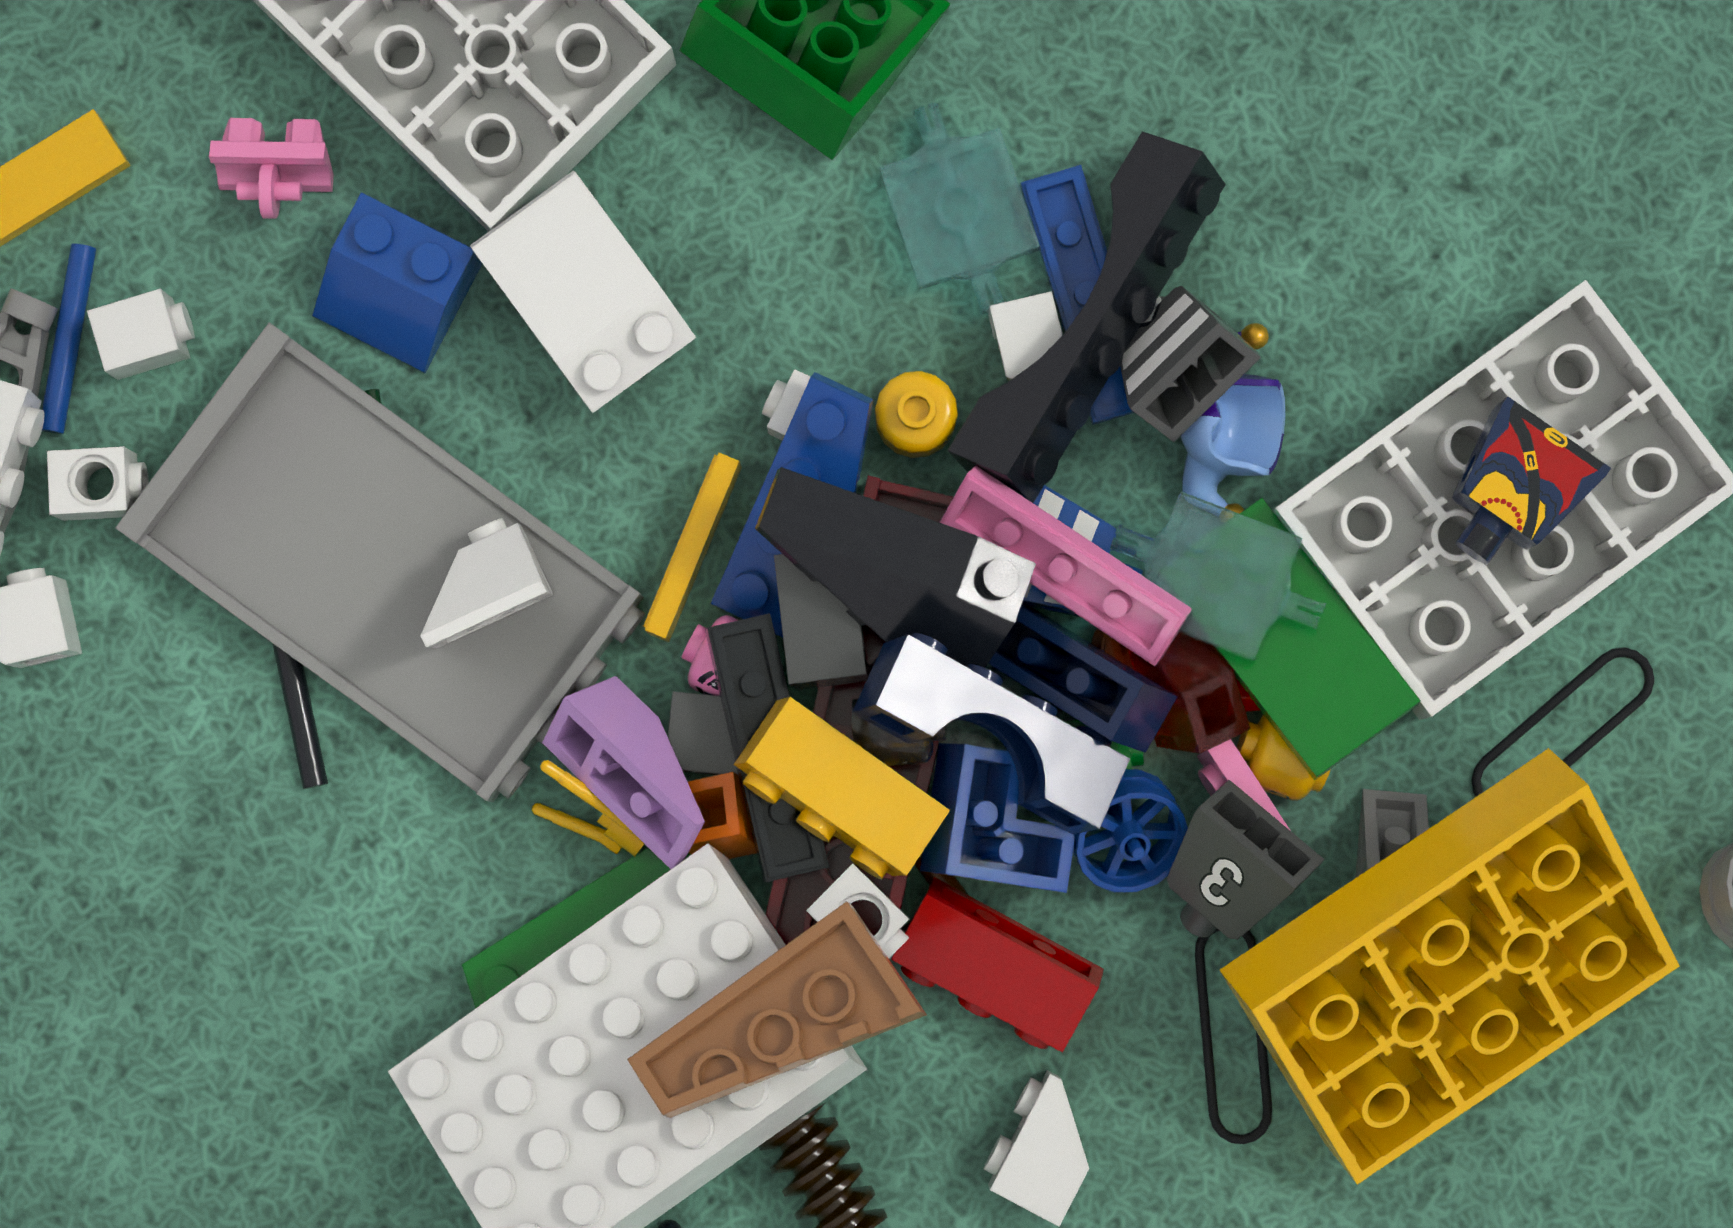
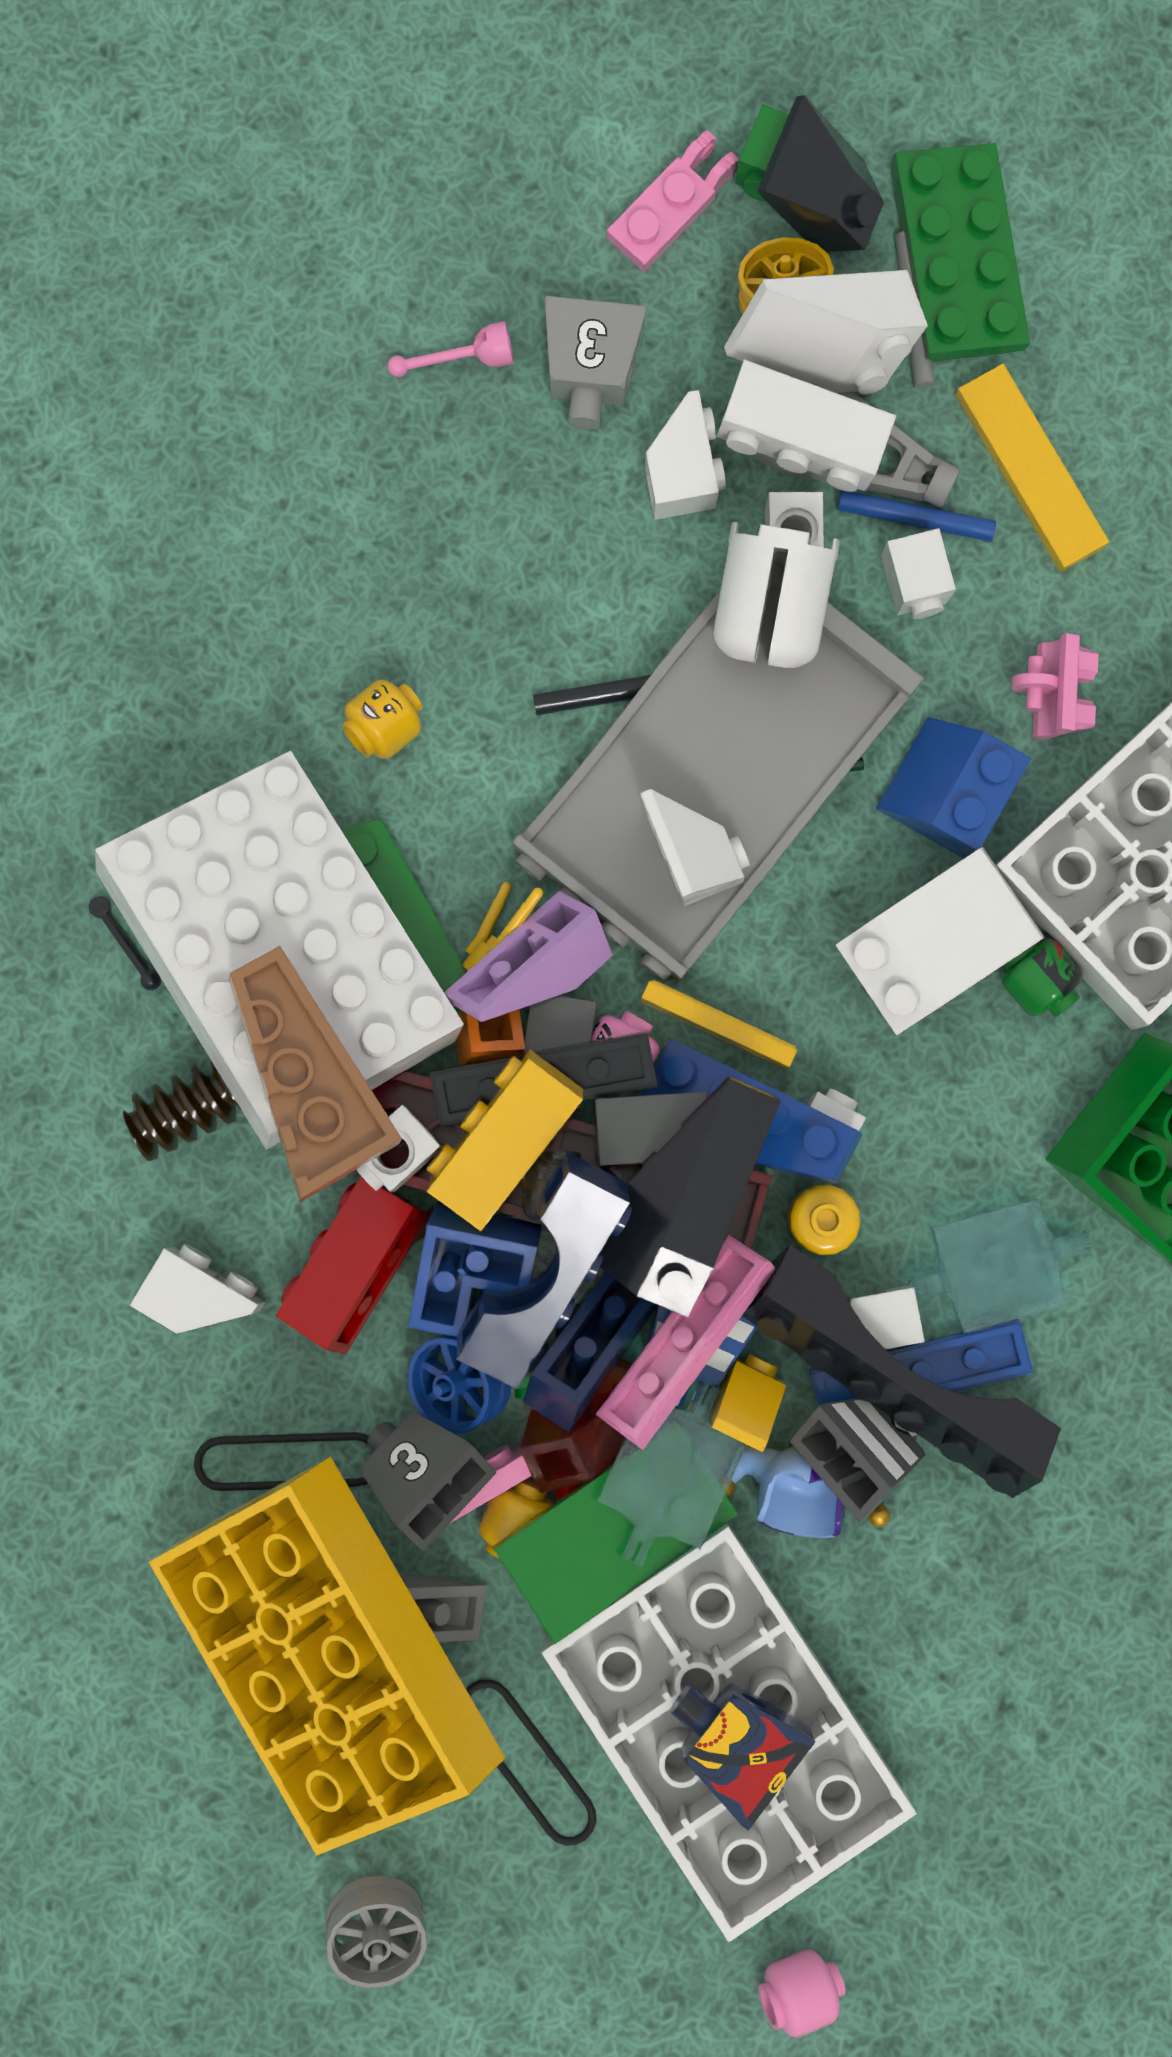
camera: 90 degrees right, 0 degrees up
(187, 469) = (747, 590): none -> white cylinder
(341, 967) = (382, 719): none -> yellow head
(621, 169) = (1043, 979): none -> green head
(1131, 491) = (748, 1402): none -> yellow slope

